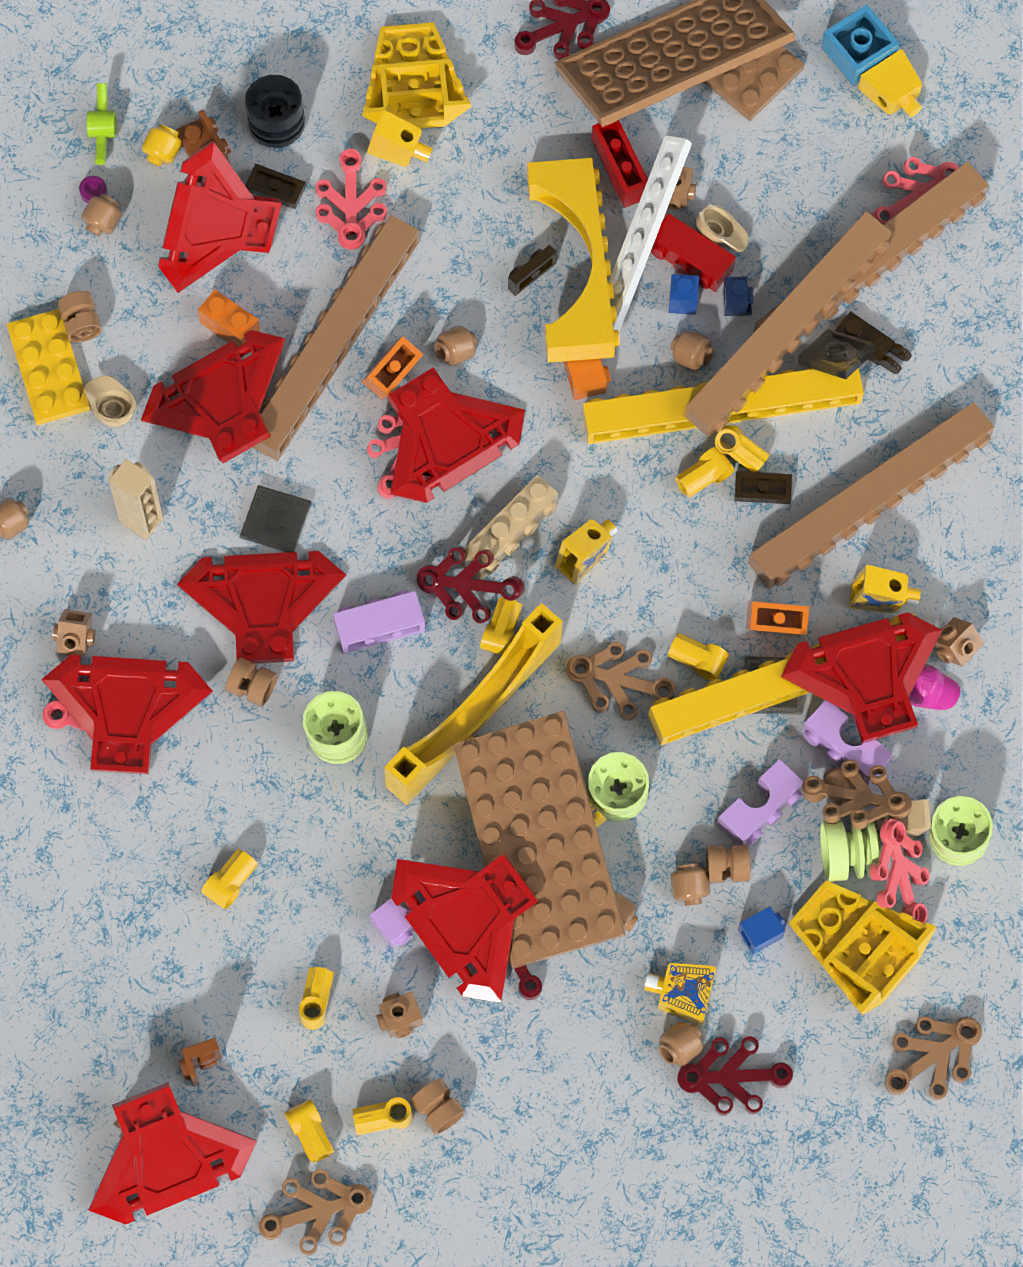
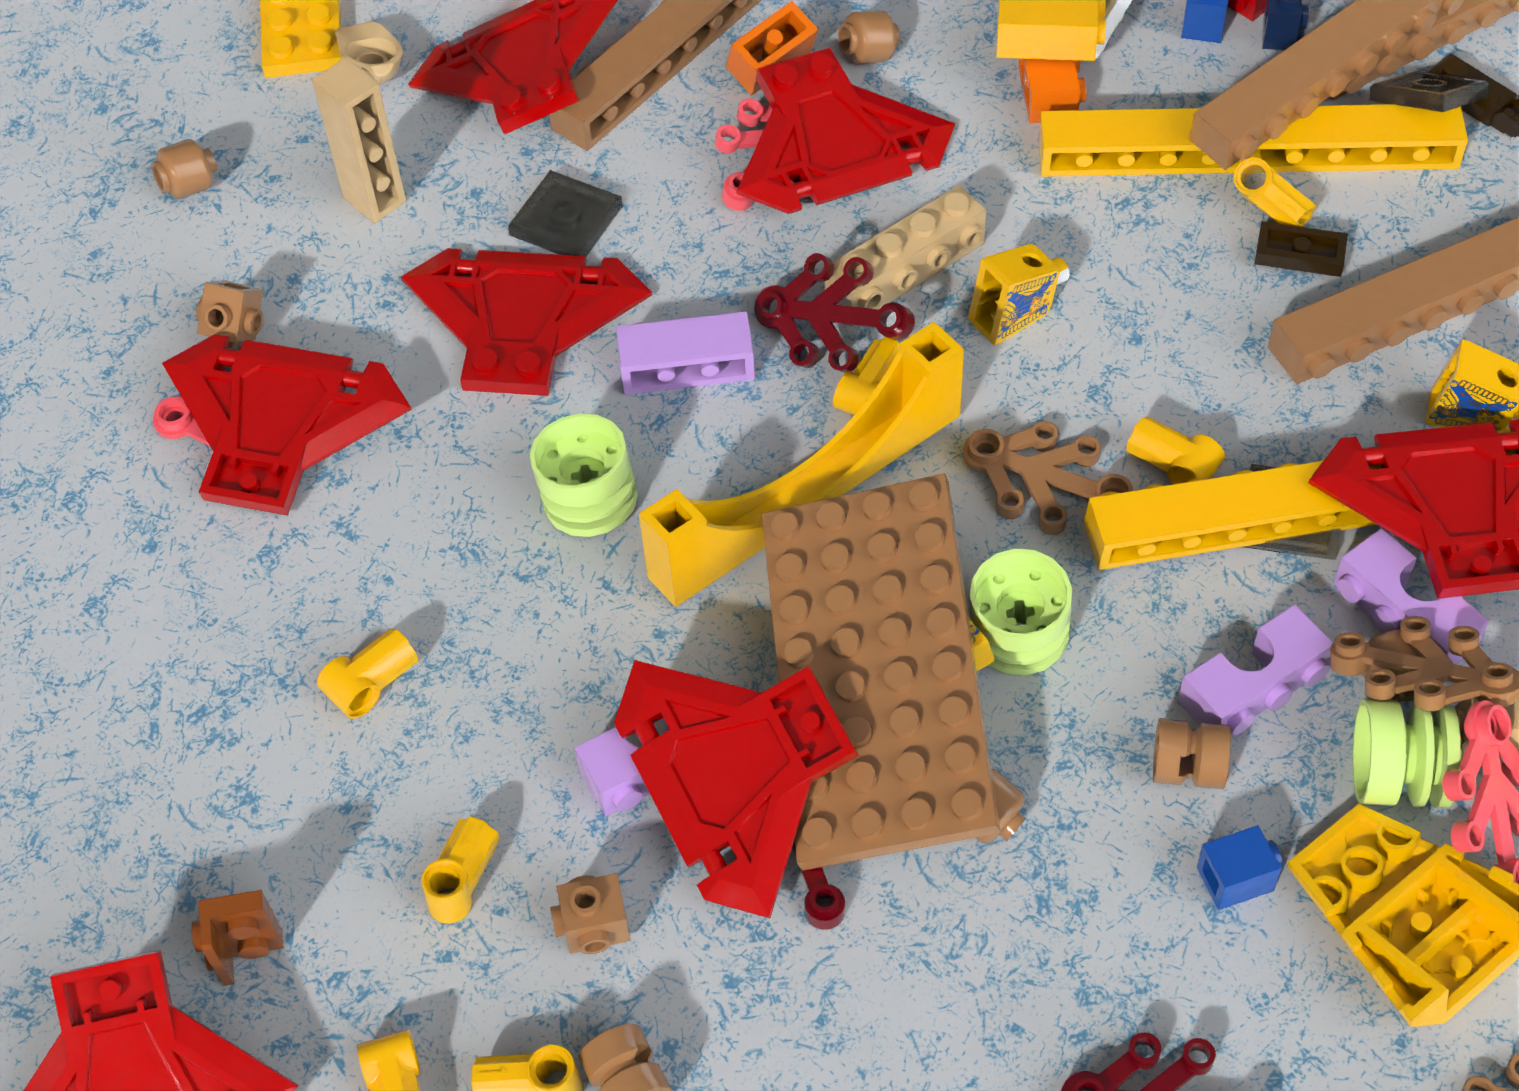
camera: 15 degrees right, 15 degrees down
(258, 689) = (473, 405): medium nougat wheel -> none
(680, 1043) = (1074, 1034): medium nougat head -> none
(683, 990) = (1090, 946): torso -> none
(690, 883) = (1122, 777): medium nougat head -> none
(692, 350) = (1210, 71): medium nougat head -> none
(710, 468) = (1221, 216): yellow piece -> none
(777, 617) = (1308, 410): orange brick -> none

